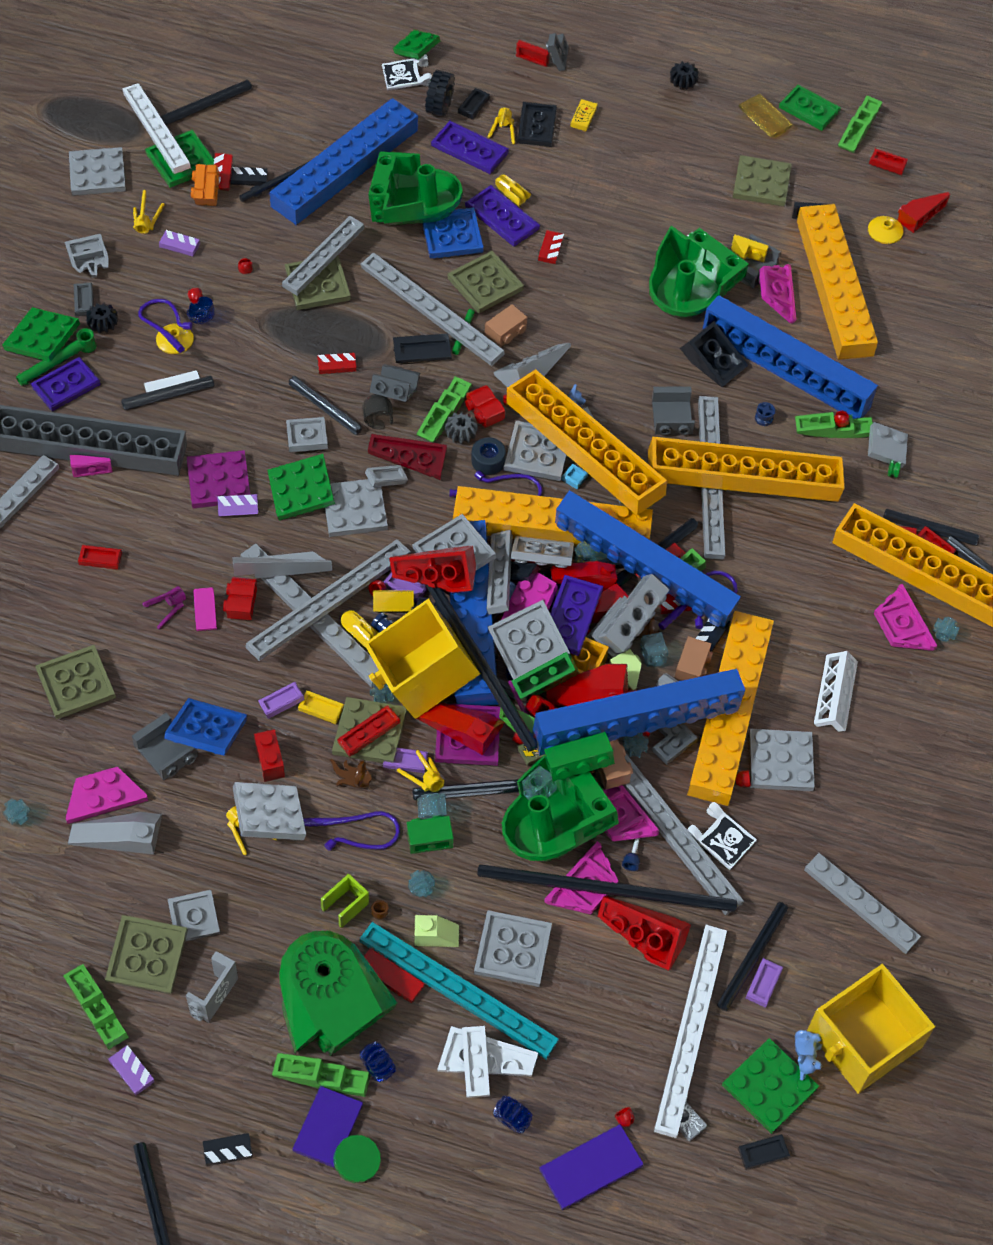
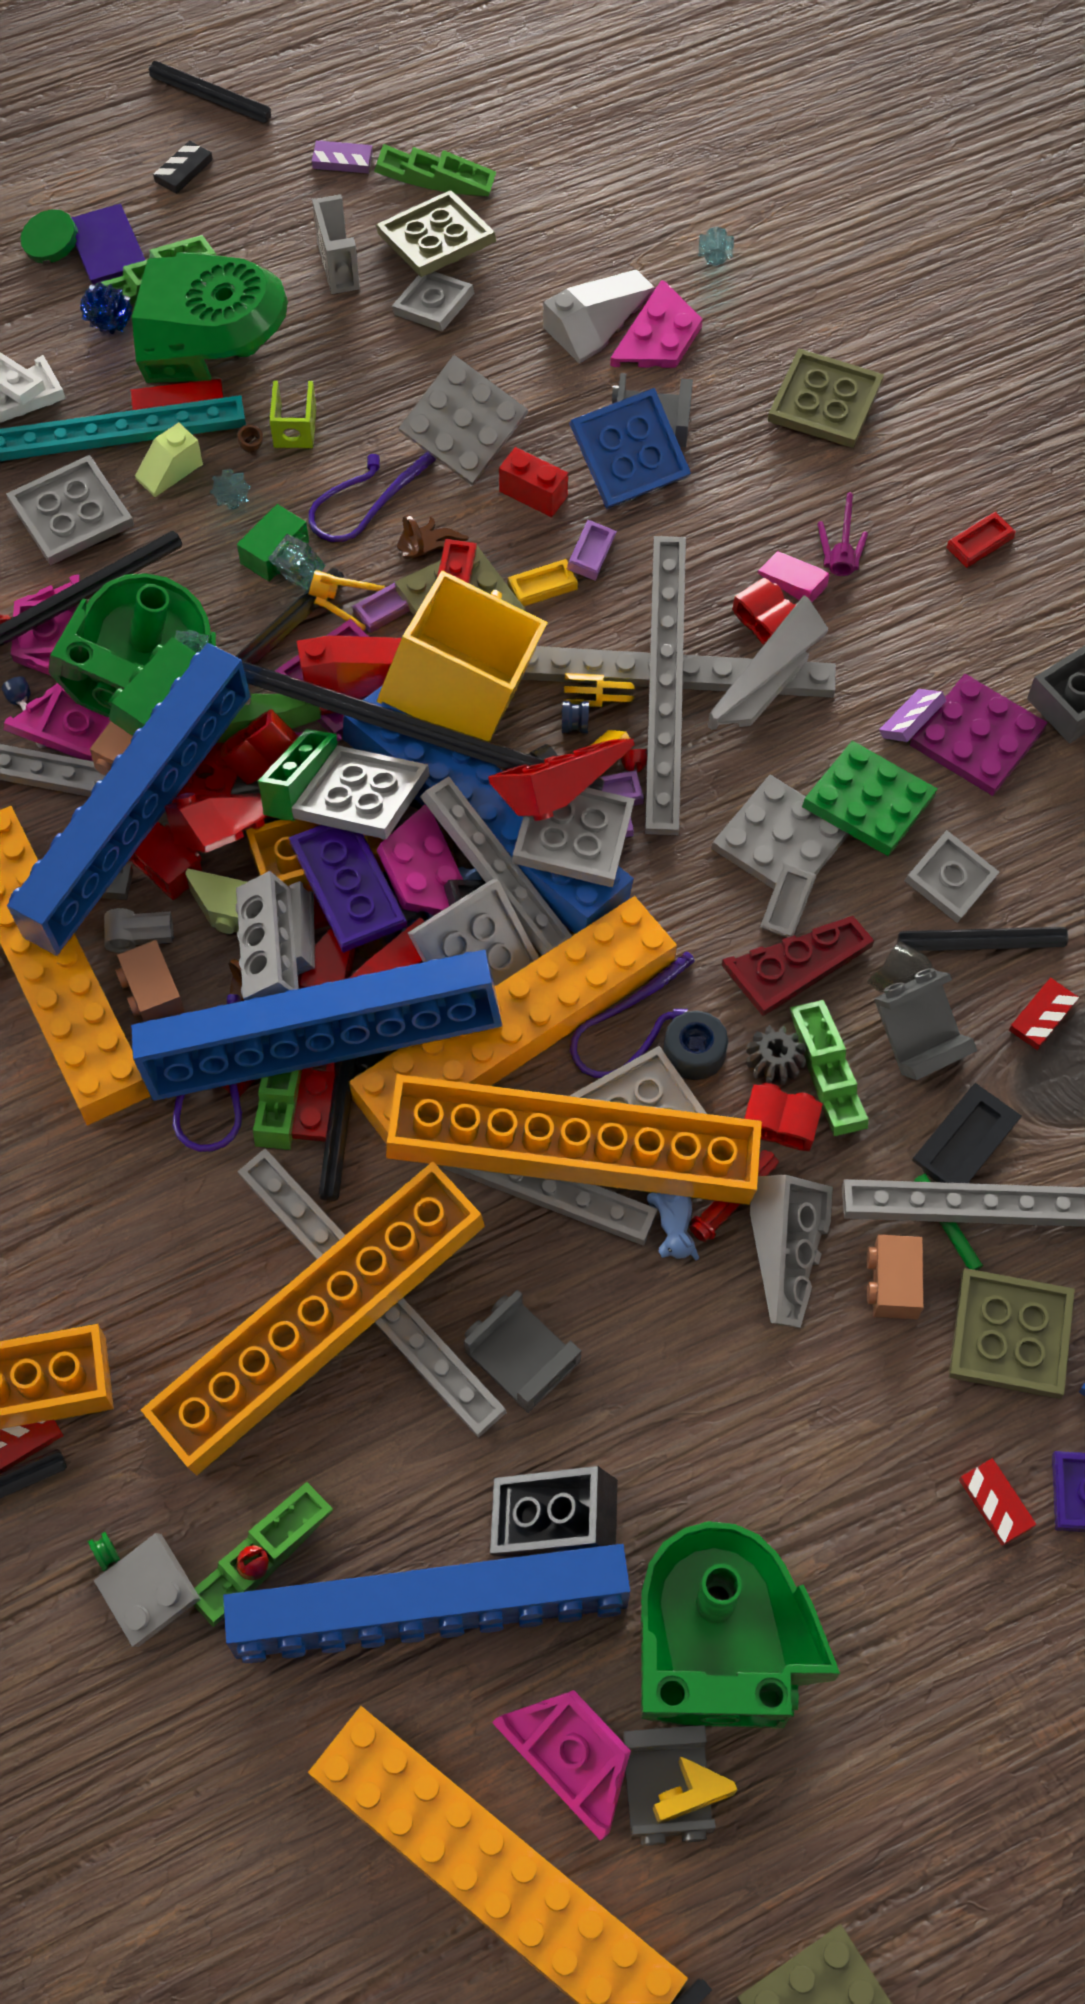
camera: 140 degrees right, 5 degrees up
(654, 649) = (210, 957): clear light blue brick -> none
(765, 409) = (382, 1467): dark blue wheel -> none

